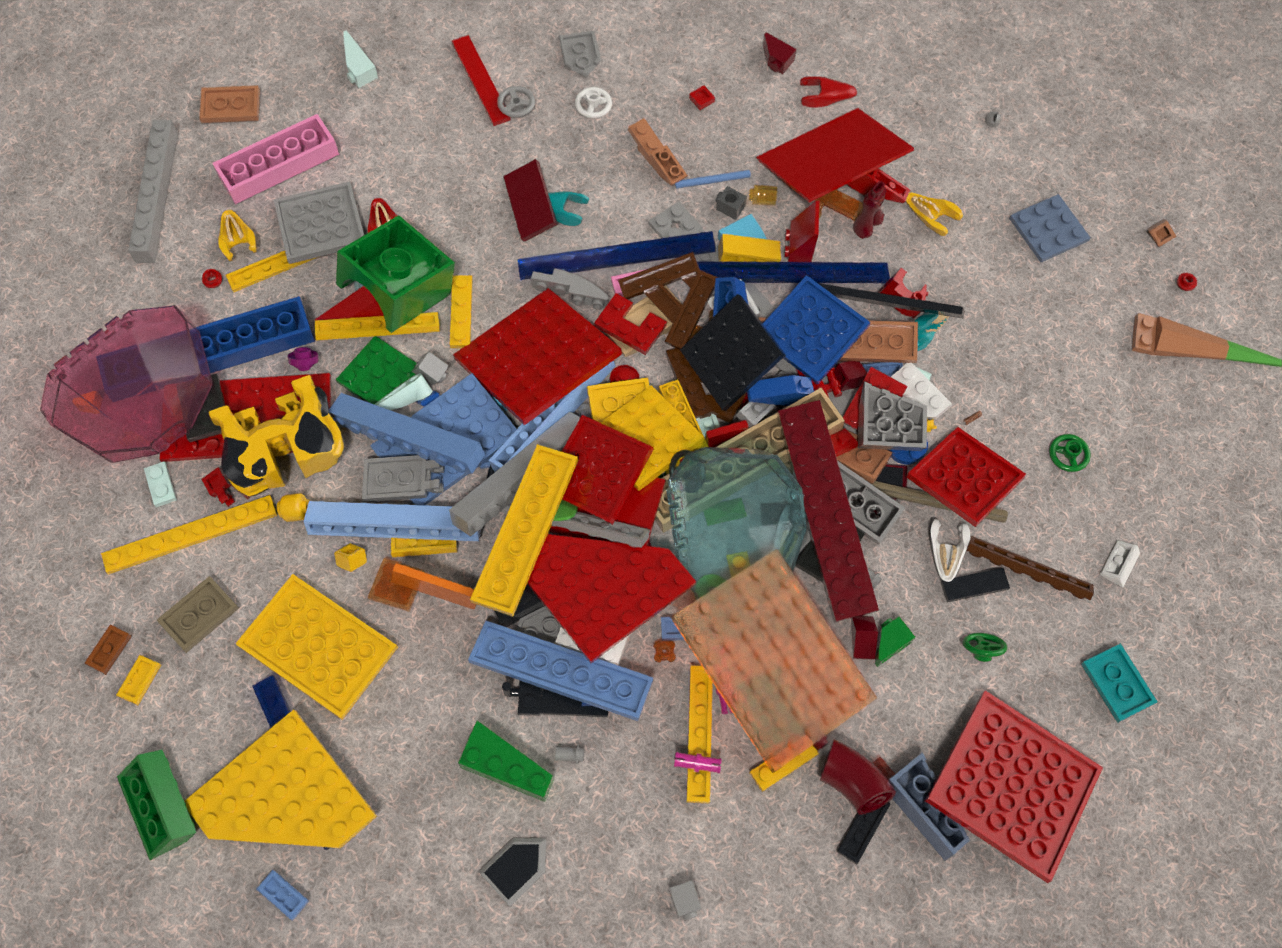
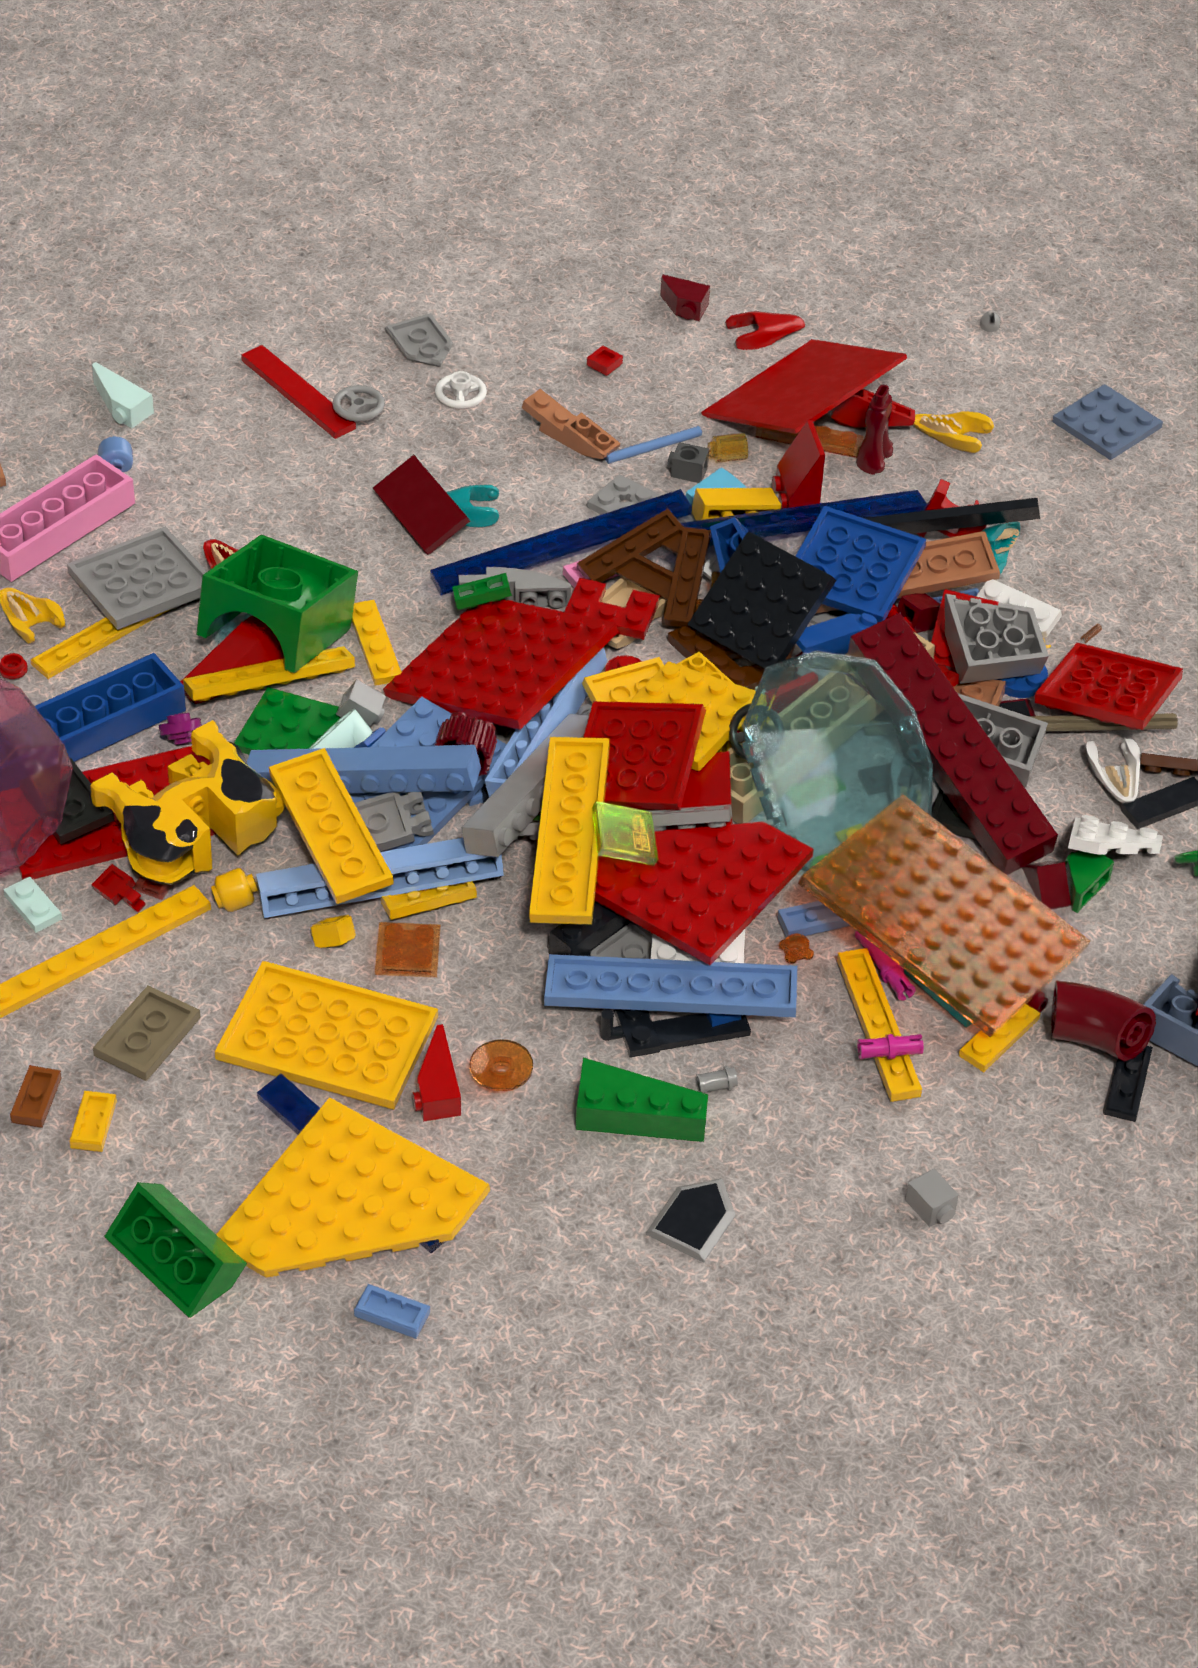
camera: 15 degrees left, 20 degrees down
(337, 111) = (117, 452): none -> medium blue head
(364, 481) = (331, 826): none -> yellow plate
(375, 708) = (437, 1083): none -> red slope
(424, 693) = (501, 1055): none -> clear orange dish
(432, 585) = (468, 926): orange tile -> none
(482, 430) = (469, 731): none -> dark red brick
(543, 290) = (482, 591): none -> green piece
(560, 544) = (624, 833): none -> clear neon green tile
(919, 613) = (1098, 838): none -> white plate

